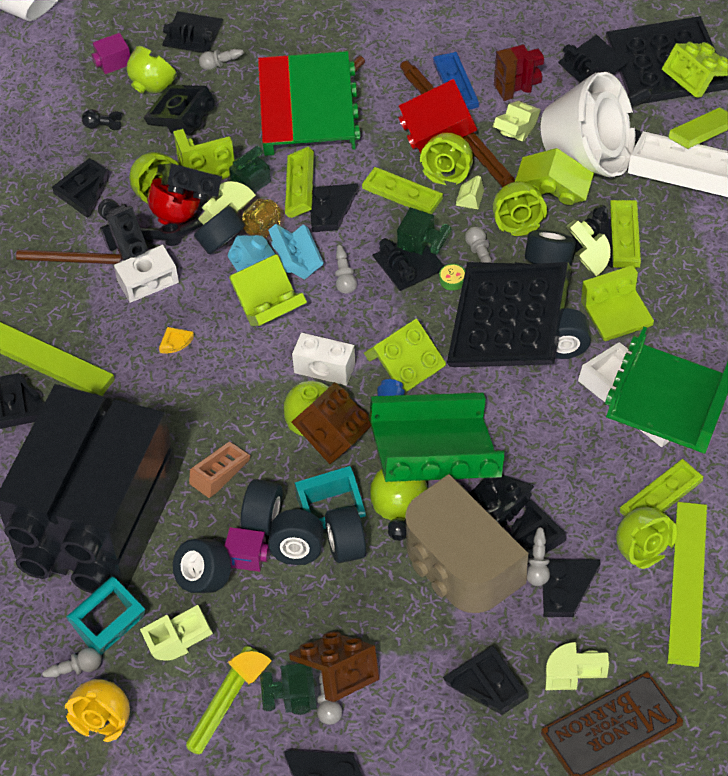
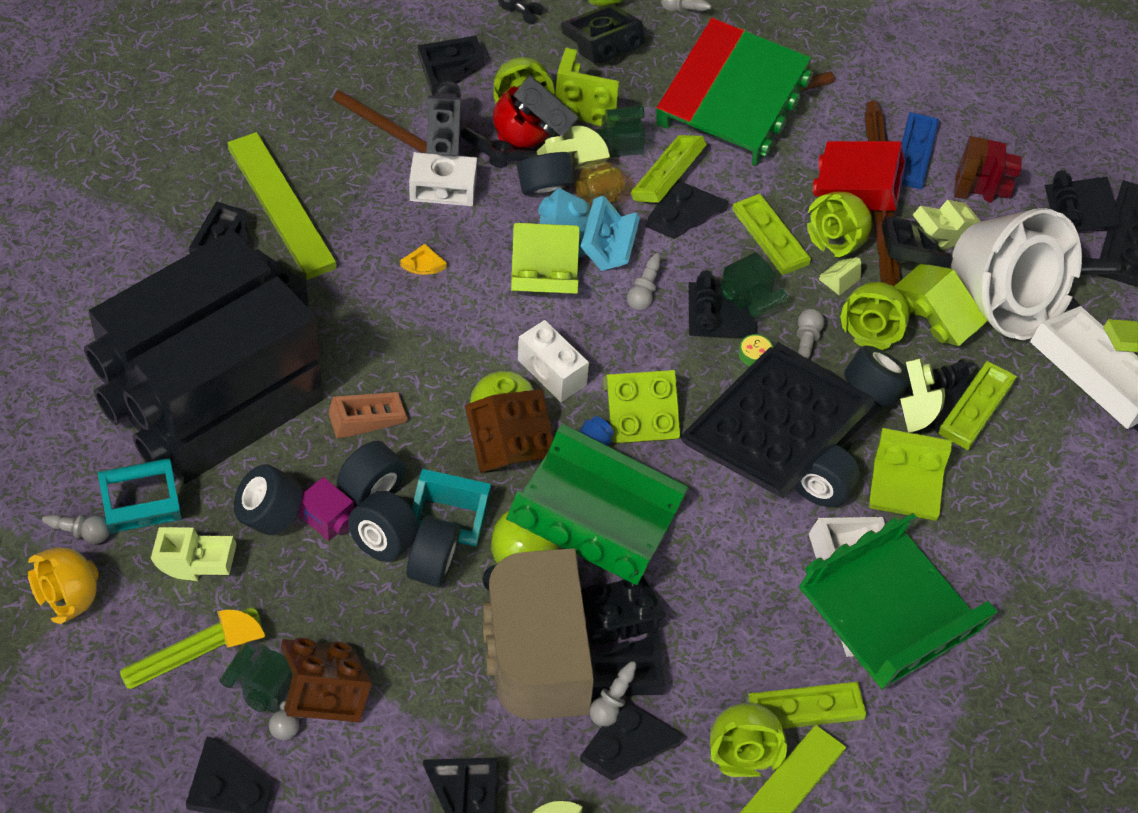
camera: 25 degrees right, 0 degrees up
(507, 147) = (909, 242): none -> black wing

